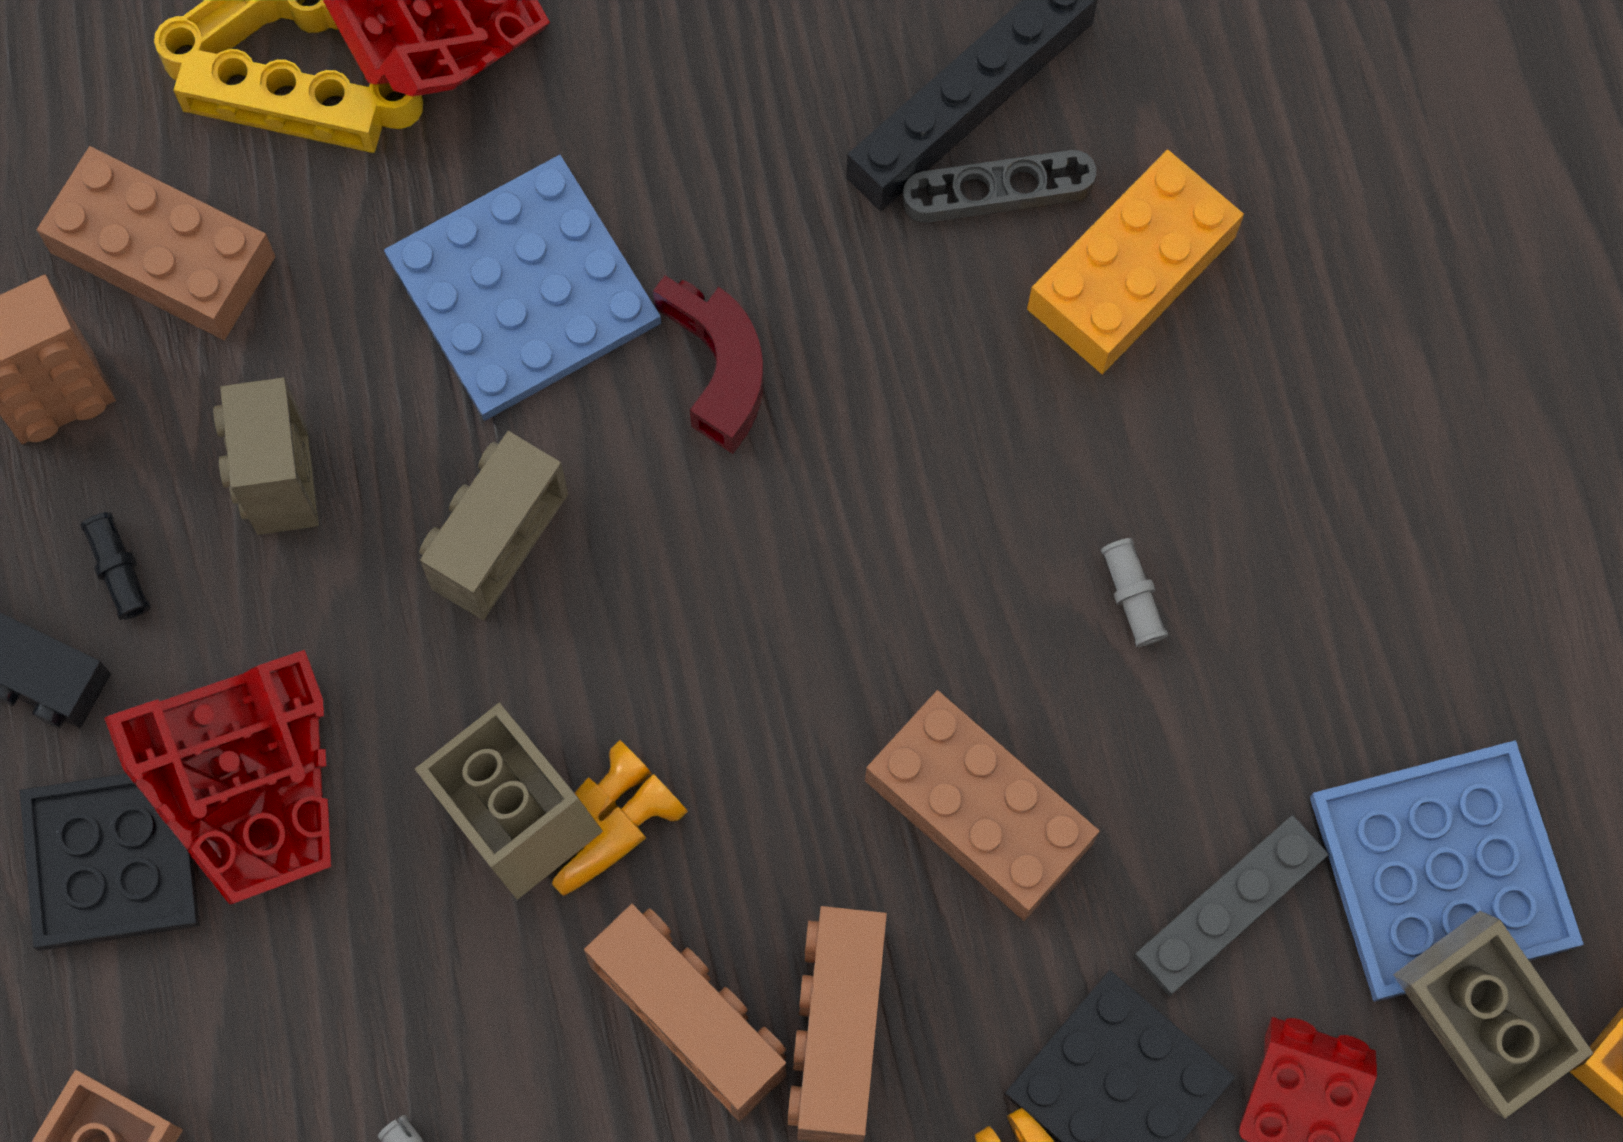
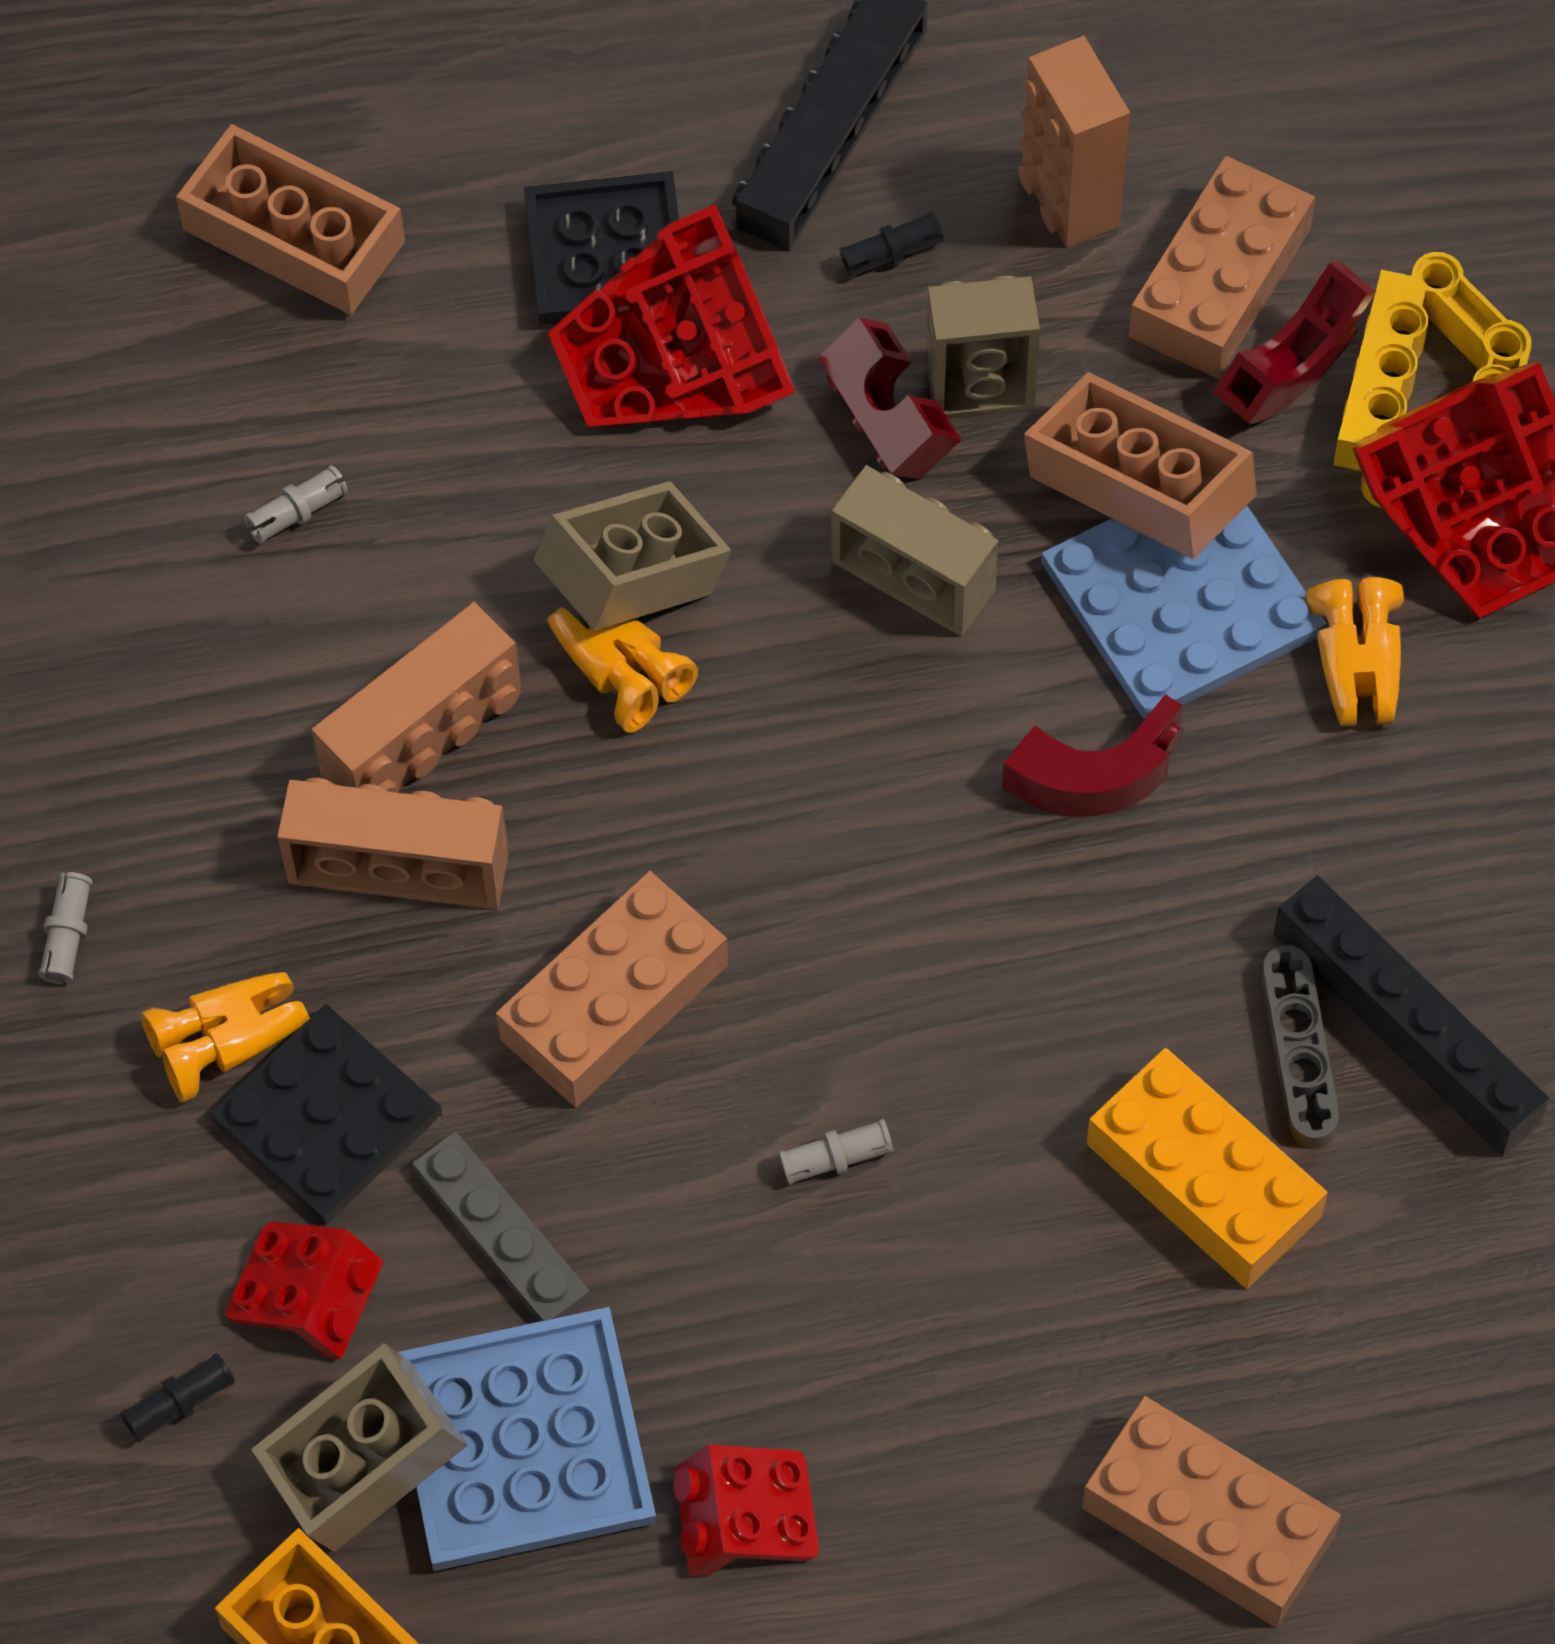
camera: 95 degrees right, 10 degrees down
(256, 172) = (1286, 366): none -> dark red arch
(352, 547) = (863, 371): none -> dark red arch
(402, 309) = (1141, 465): none -> nougat brick
(597, 123) = (1363, 663): none -> light orange piece
(1463, 259) = (1210, 1511): none -> nougat brick
(1498, 664) = (744, 1507): none -> red bracket

